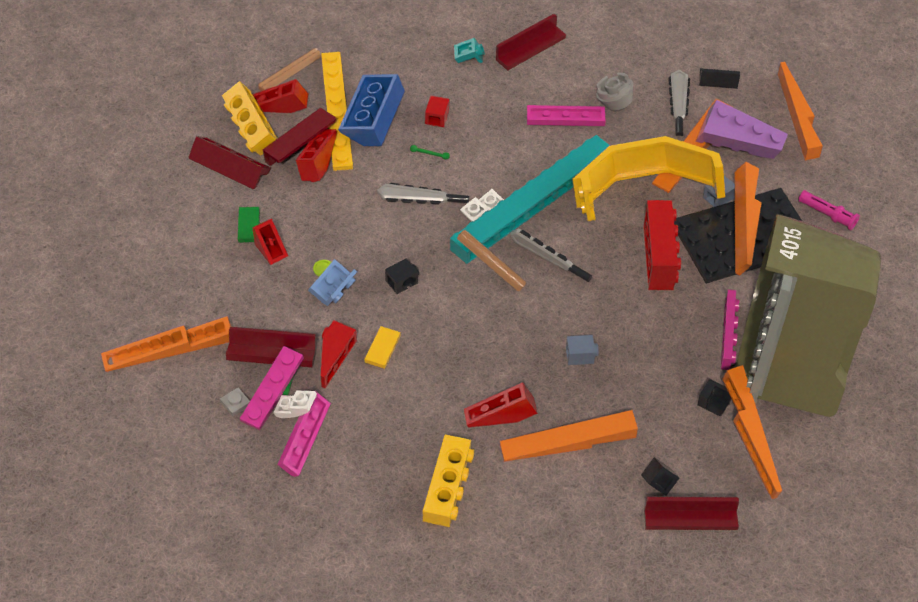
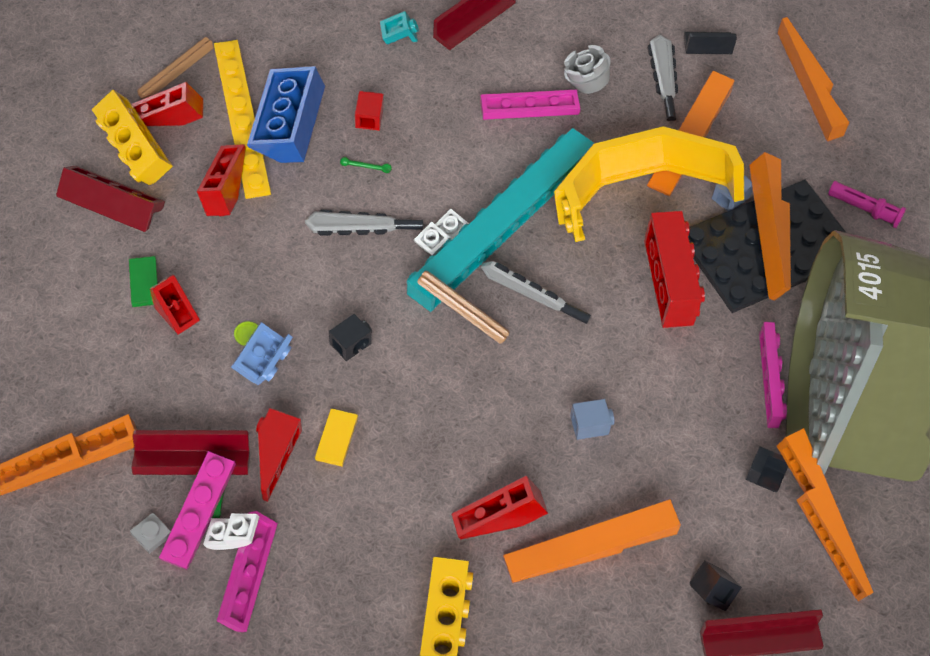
camera: 10 degrees left, 5 degrees up
(298, 136) = (196, 157): dark red panel -> none
(740, 131) = (747, 111): medium lavender wedge -> none

